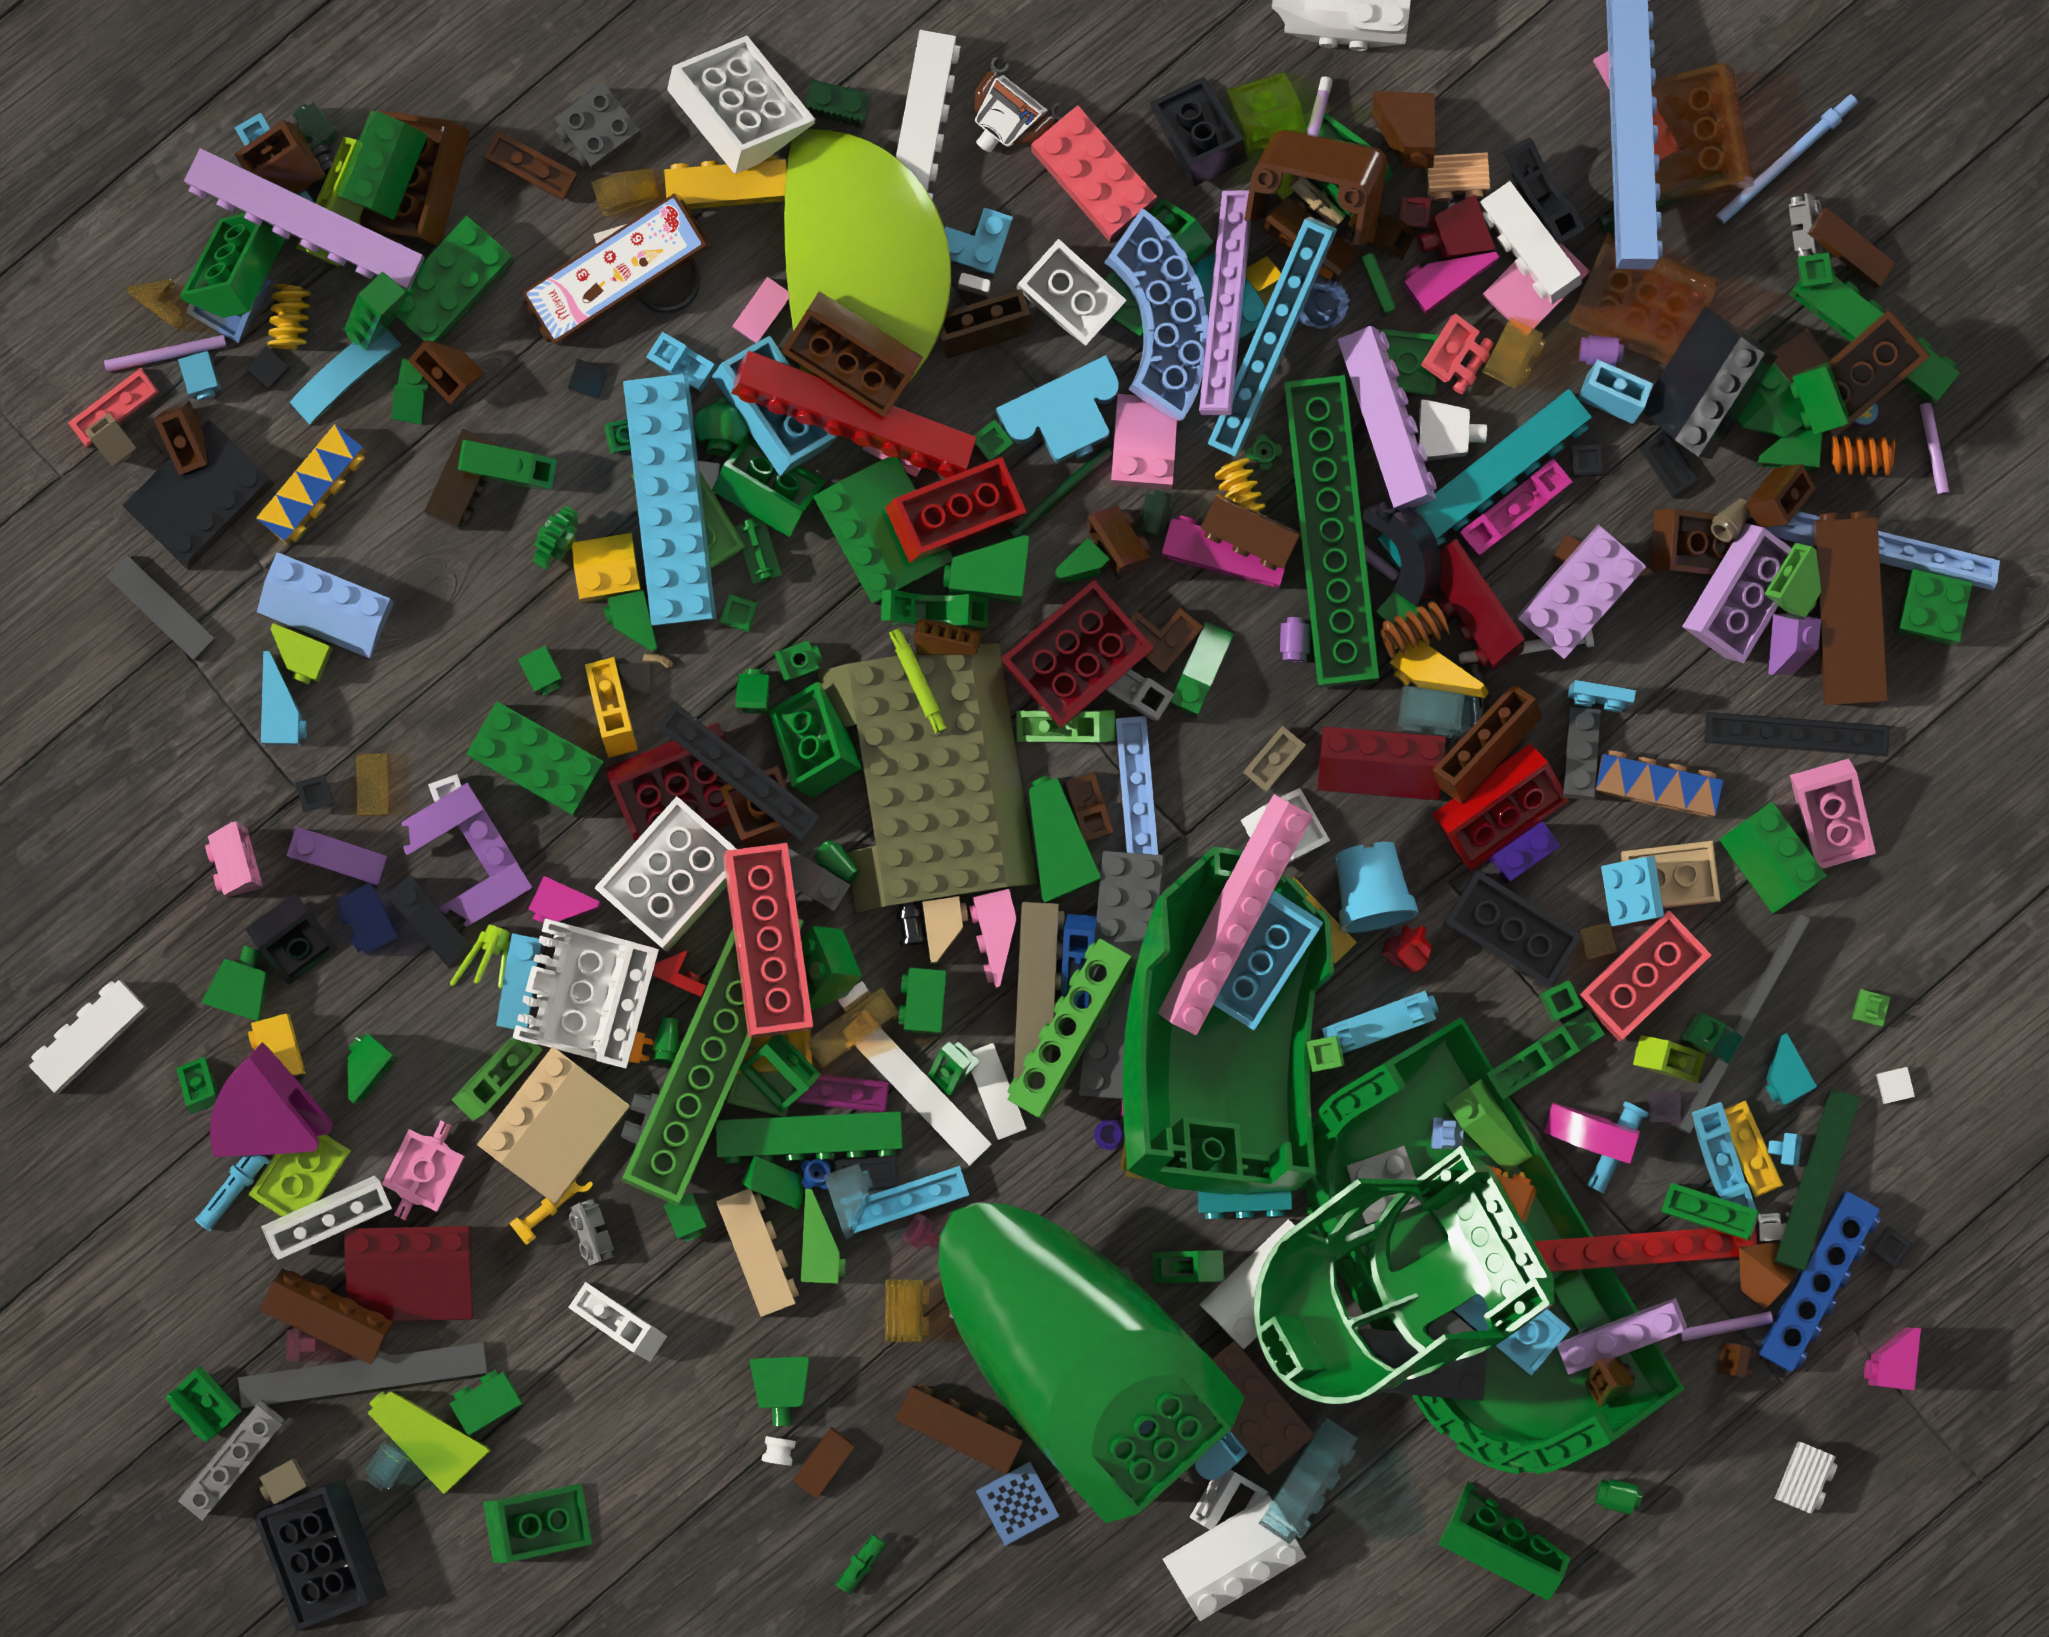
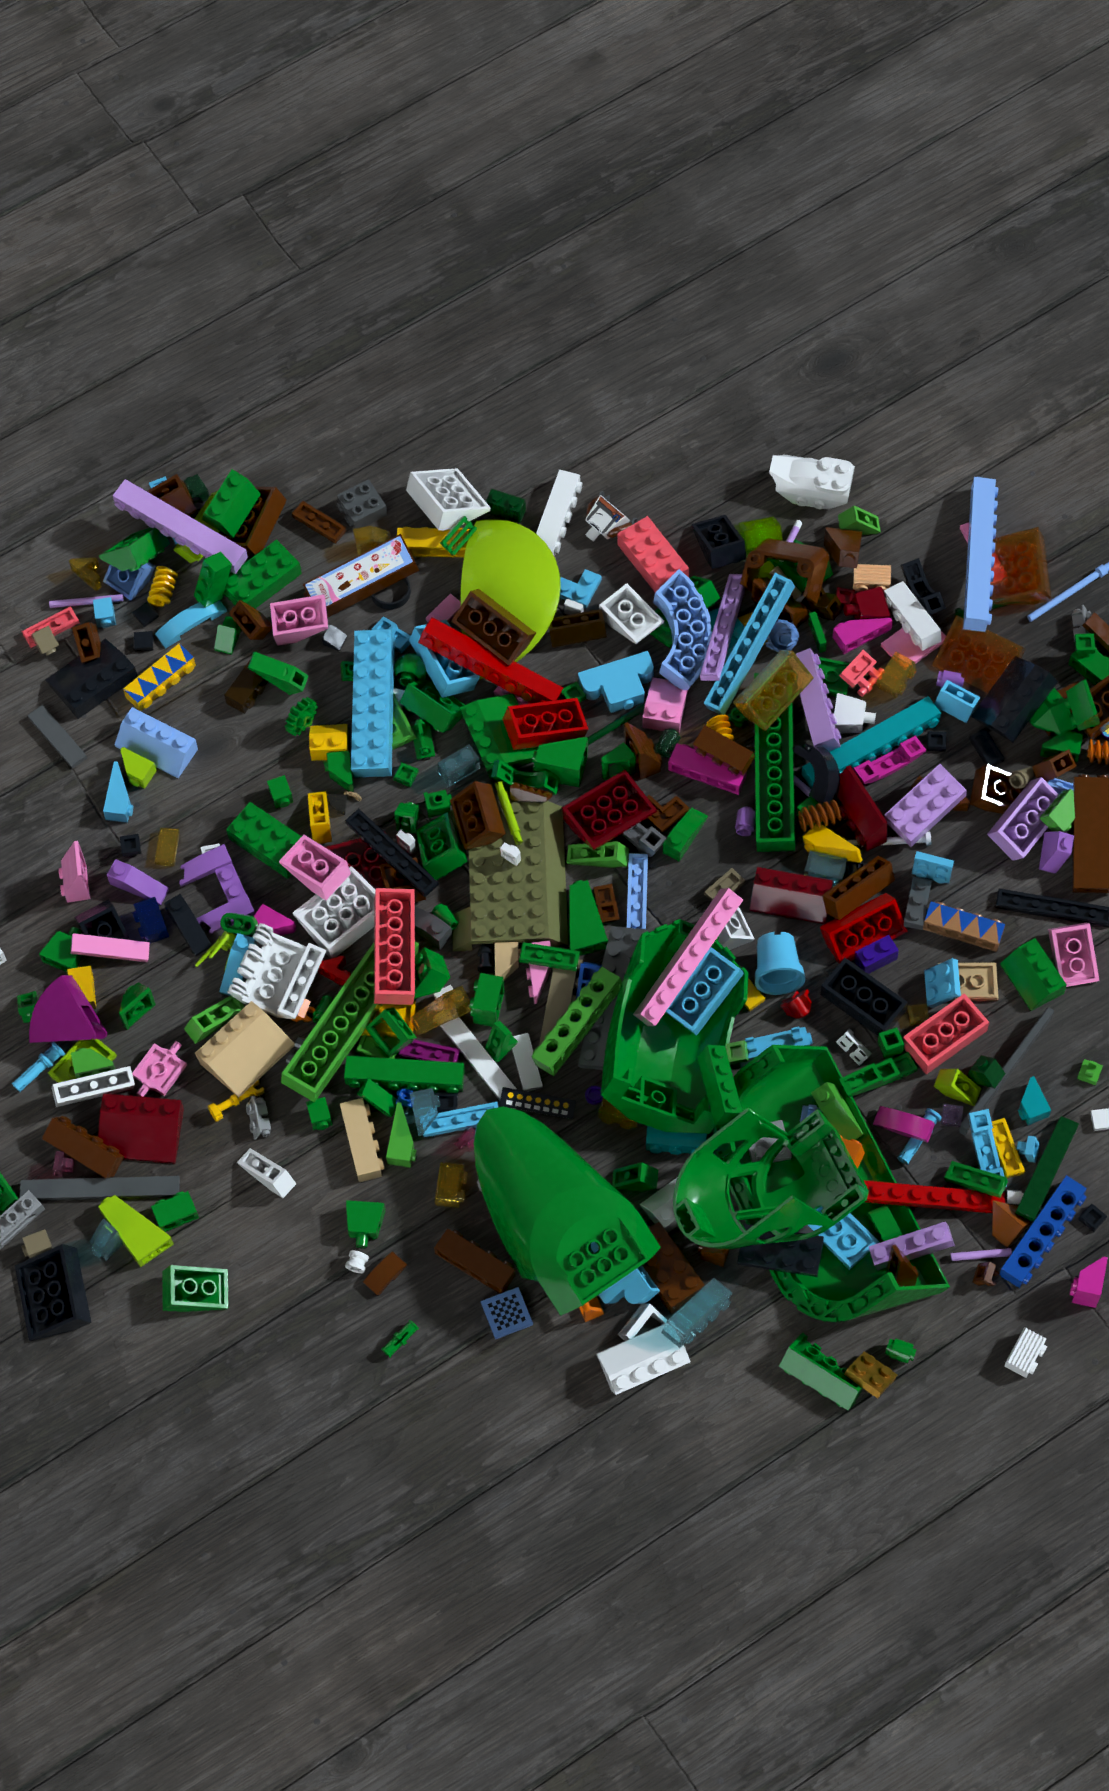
camera: 15 degrees right, 20 degrees down
(273, 417) = (143, 641): none -> black tile
(312, 977) = (110, 948): none -> bright pink tile
(313, 1178) = (88, 1062): none -> bright green slope
(514, 916) = (240, 923): none -> green plate
(526, 359) = (298, 619): none -> bright pink slope
(620, 812) = (316, 867): none -> bright pink slope
(757, 734) = (406, 841): none -> white plate
(773, 181) = (468, 524): none -> green tile
(823, 592) = (459, 765): none -> clear light blue brick
(869, 694) = (477, 815): none -> reddish brown slope
(931, 754) = (510, 853): none -> white plate
(1012, 918) = (549, 956): none -> green tile
(1022, 1157) = (537, 1103): none -> black sticker
(1308, 1128) = (719, 1084): none -> green wedge
(1320, 415) = (773, 689): none -> clear yellow slope
(1427, 72) = (859, 520): none -> bright green slope
(1504, 1000) = (848, 1044): none -> white piece
(1577, 1542) = (870, 1374): none -> pearl gold plate

